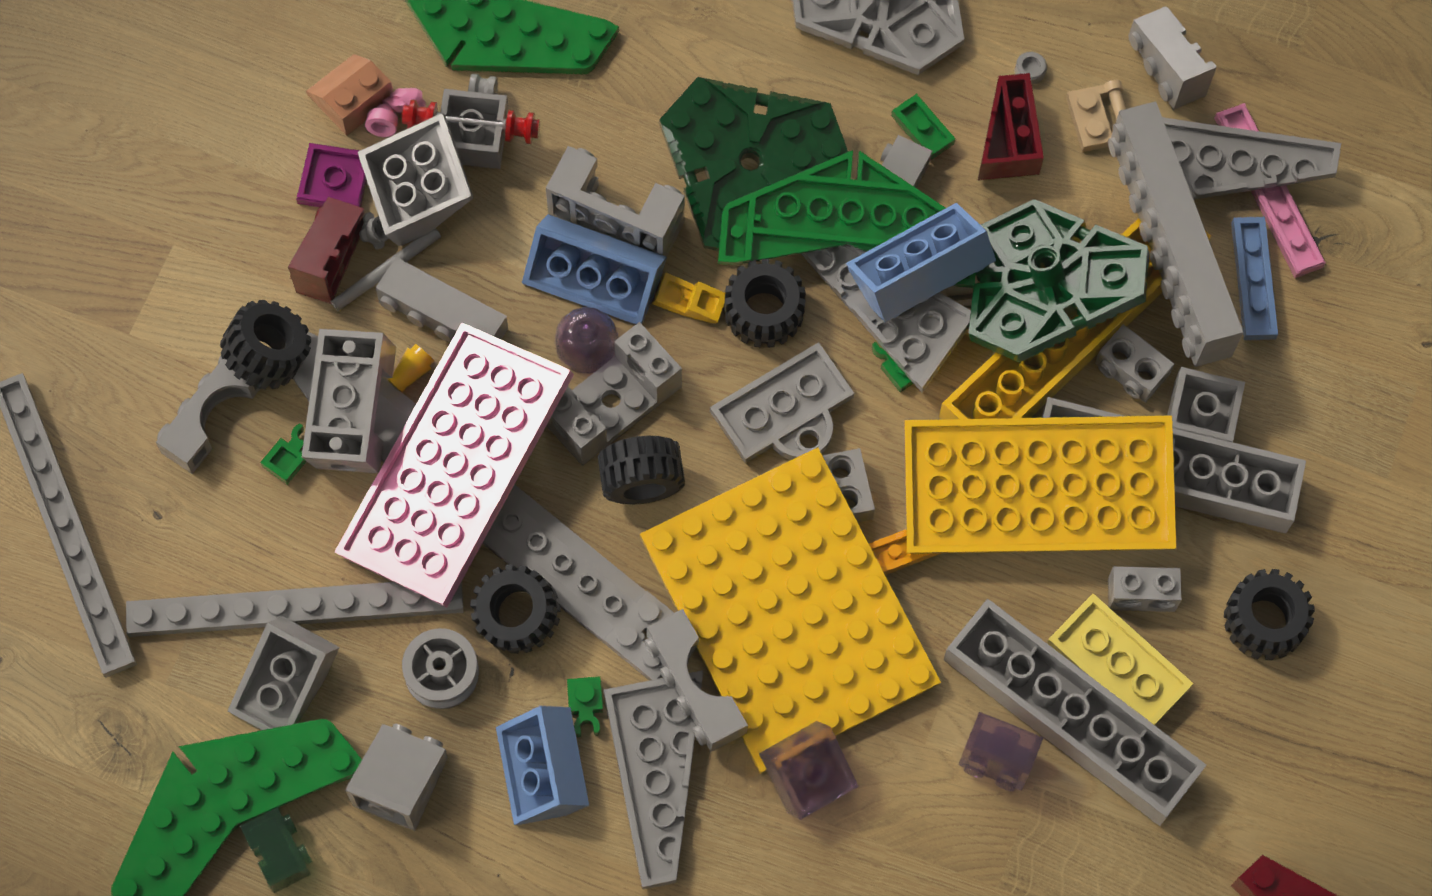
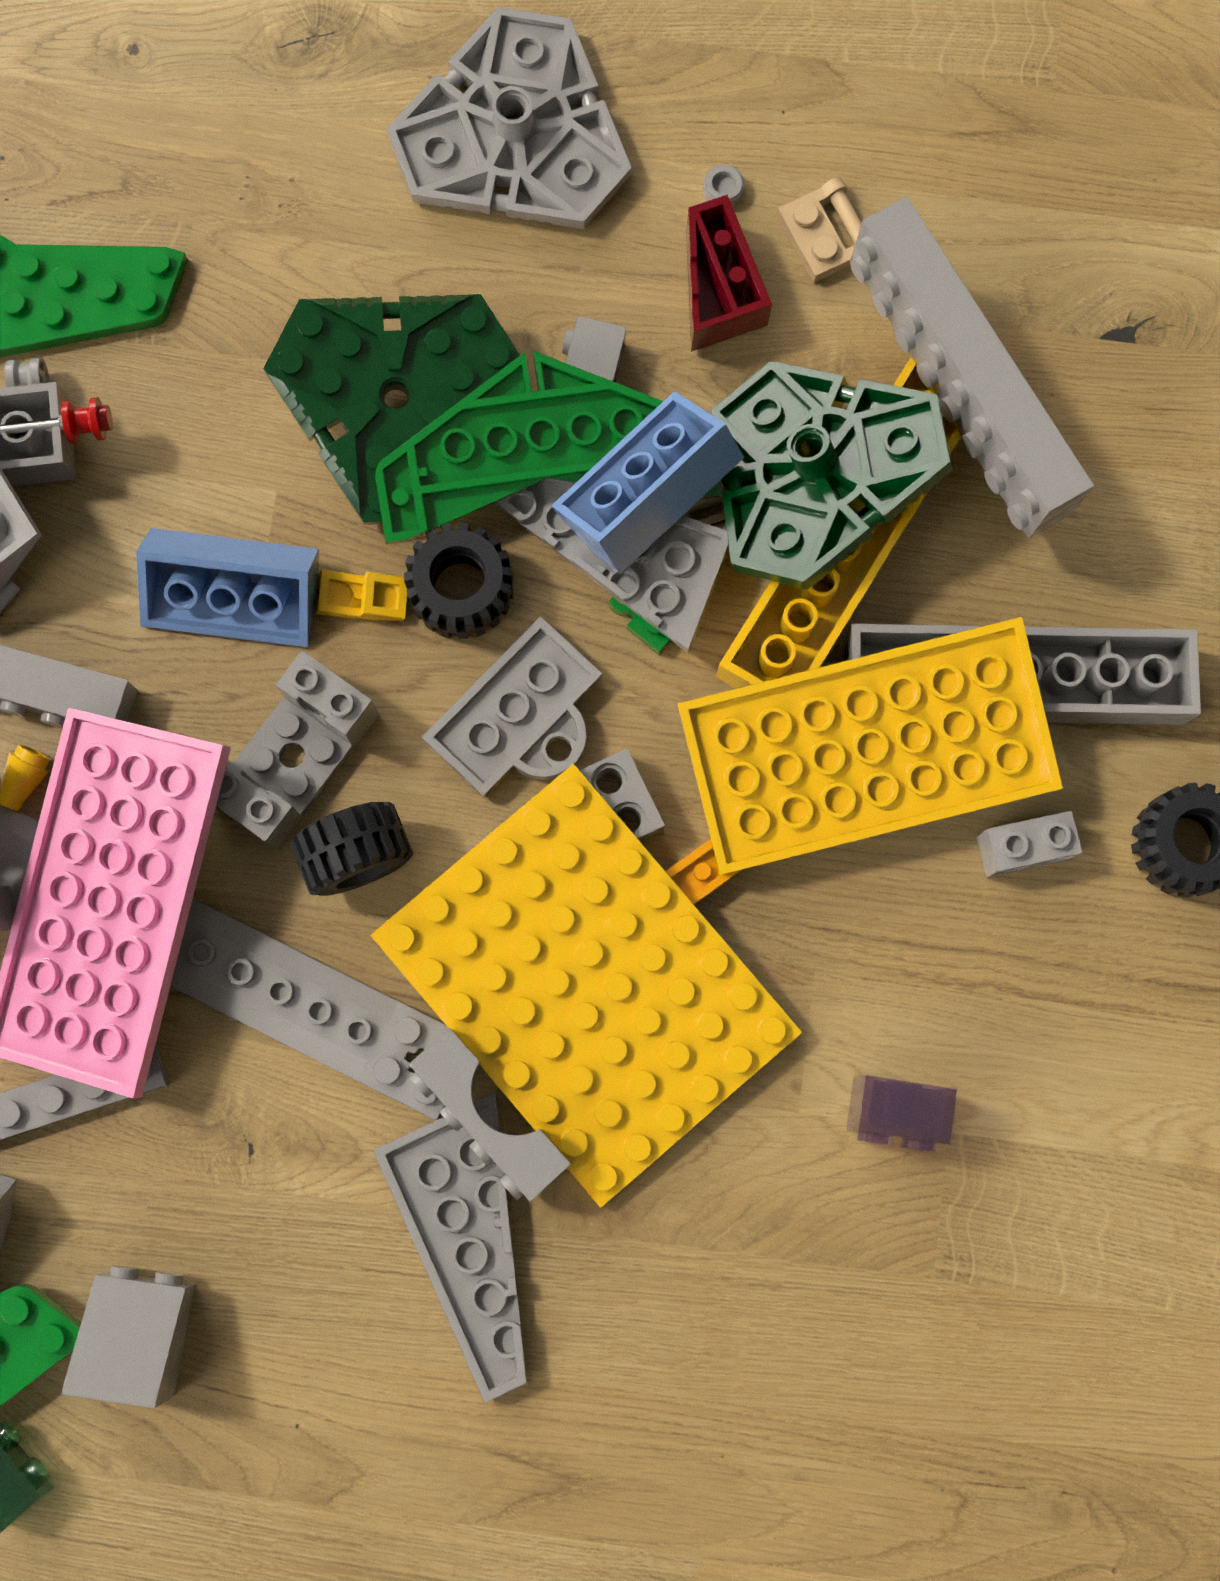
camera: 15 degrees left, 10 degrees up
(440, 687) = (127, 1182): light grey wheel -> none
(493, 593) = (198, 1081): black tyre -> none
(542, 765) = (318, 1271): medium blue slope -> none
(574, 199) = (176, 497): light grey plate -> none
(585, 339) = (240, 683): cylinder -> none
(585, 699) = (352, 1164): green plate -> none
(808, 770) = (662, 1197): brick -> none
(923, 125) = (606, 295): green plate -> none
(1074, 712) = (982, 1032): light grey brick -> none
(1120, 659) = (1020, 948): light yellow plate -> none
(1140, 358) = (950, 538): light grey brick -> none
(1171, 58) = (899, 132): light grey wedge -> none
(1206, 404) = (1050, 584): light grey brick -> none
(1241, 160) = (1024, 246): light grey wing -> none
(1254, 278) = (1068, 394): medium blue plate -> none
(1279, 209) = (1059, 279): bright pink tile -> none

